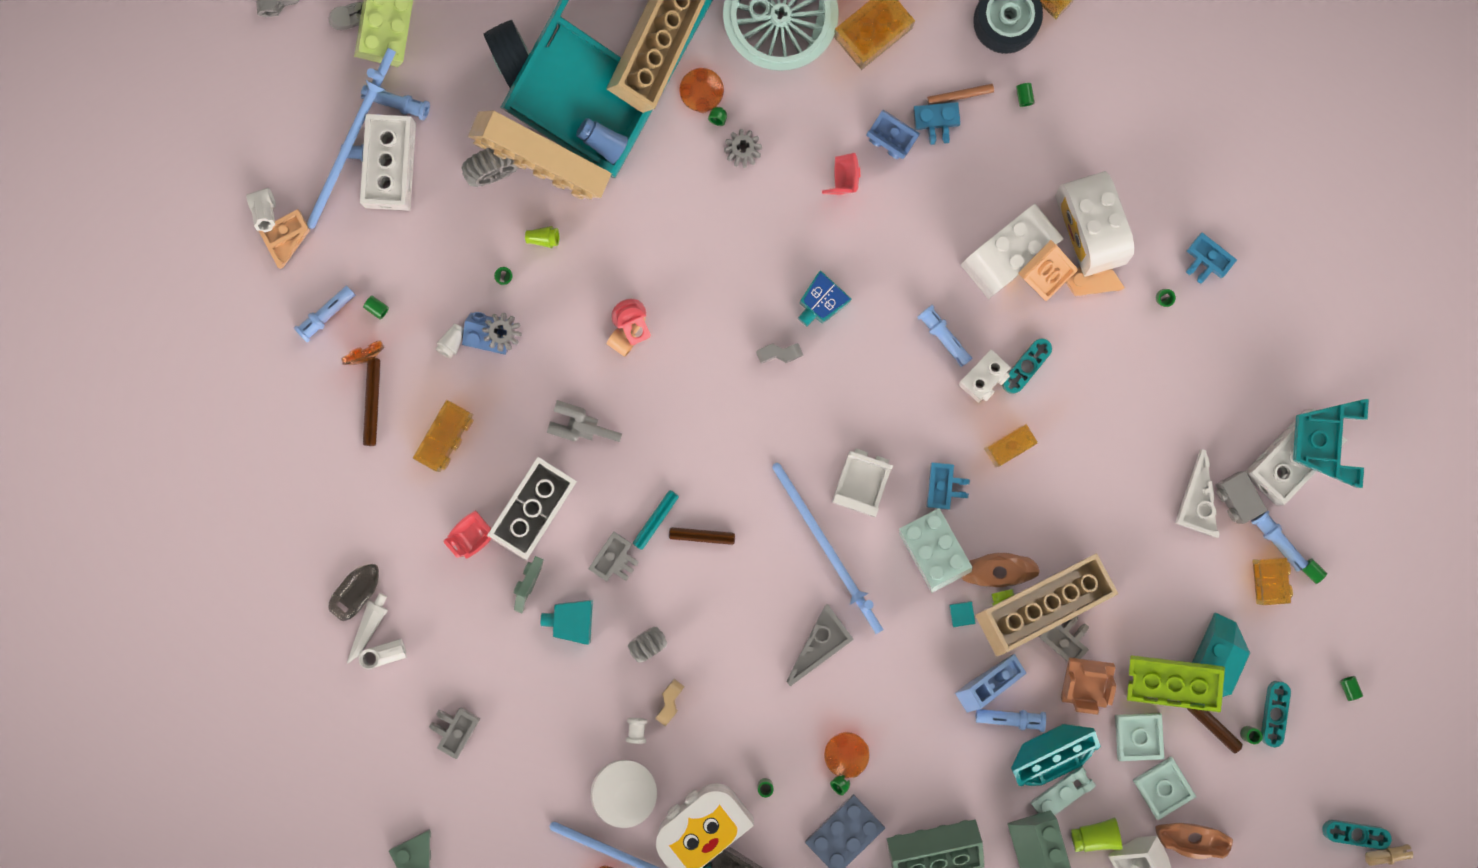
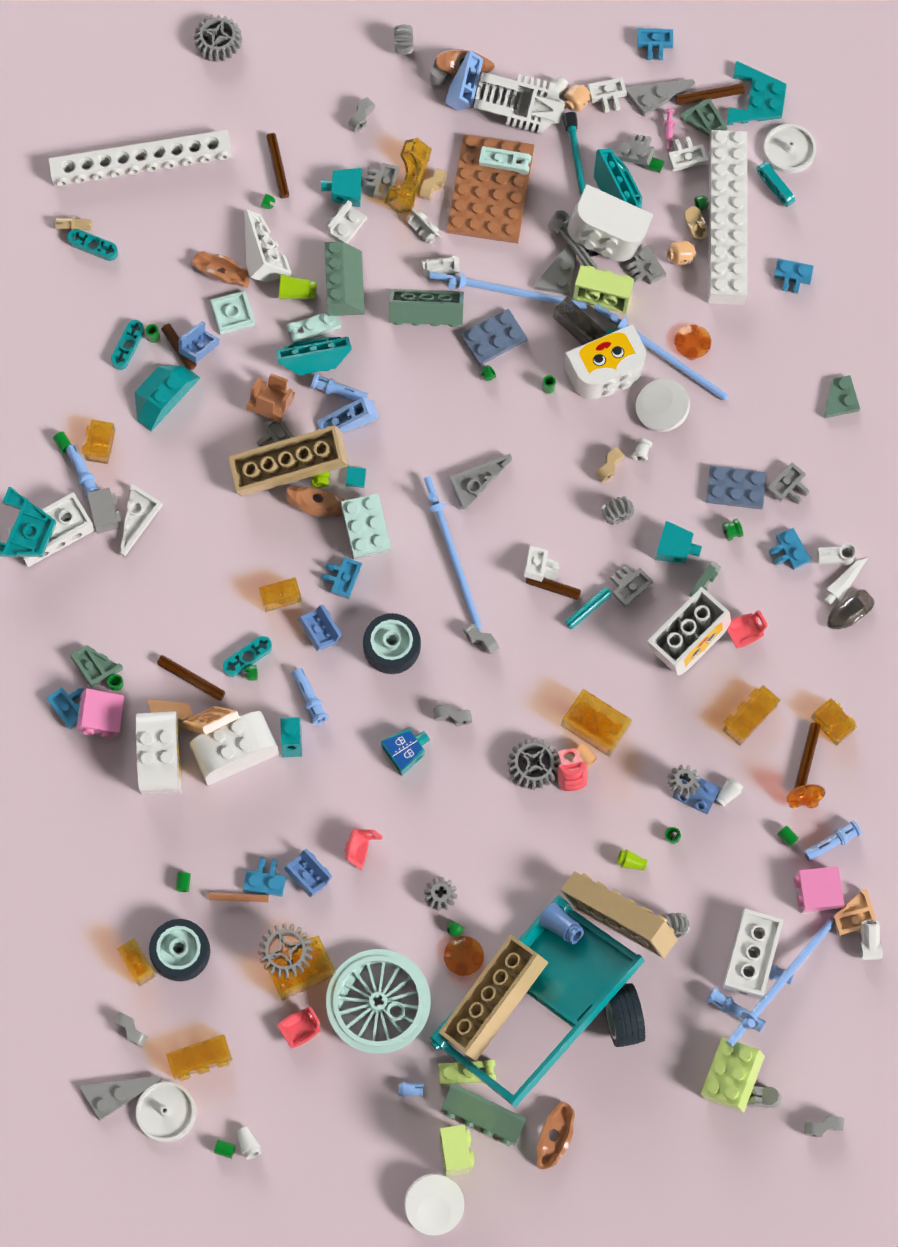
camera: 165 degrees left, 15 degrees down
(329, 253) = (819, 889): none -> bright pink piece
(347, 451) = (834, 721): none -> clear yellow brick
(435, 652) = (792, 548): none -> dark azure hinge
(509, 656) = (732, 529): none -> green wheel
(516, 712) = (736, 487): none -> sand blue plate
(579, 424) = (636, 696): light grey plant -> none
(615, 381) = (596, 722): none -> clear yellow brick
(667, 337) = (539, 768): none -> light grey gear
(727, 555) = (539, 565): none -> white hinge
(775, 451) = (478, 638): none -> light grey piece
(846, 755) = (477, 393): clear orange dish -> none
(862, 482) = (411, 594): white panel -> none
(885, 15) = (293, 949): none -> light grey gear
(885, 413) = (391, 629): none -> wheel
(953, 284) = (291, 736): none -> teal torso
(954, 417) = (320, 628): none -> medium blue bracket
(984, 376) = (287, 655): white brick -> none
(1016, 348) = (252, 673): none -> green hinge
(1083, 325) = (191, 677): none -> reddish brown axle
(1139, 736) = (240, 353): light aqua tile -> none
(1172, 253) = (100, 713): none -> bright pink piece
(1177, 681) = (202, 381): lime piece -> none
(1194, 312) = (94, 666): none -> sand green wing
(1195, 734) = (197, 343): none -> medium blue bracket
(1351, 688) = (61, 349): green hinge -> none

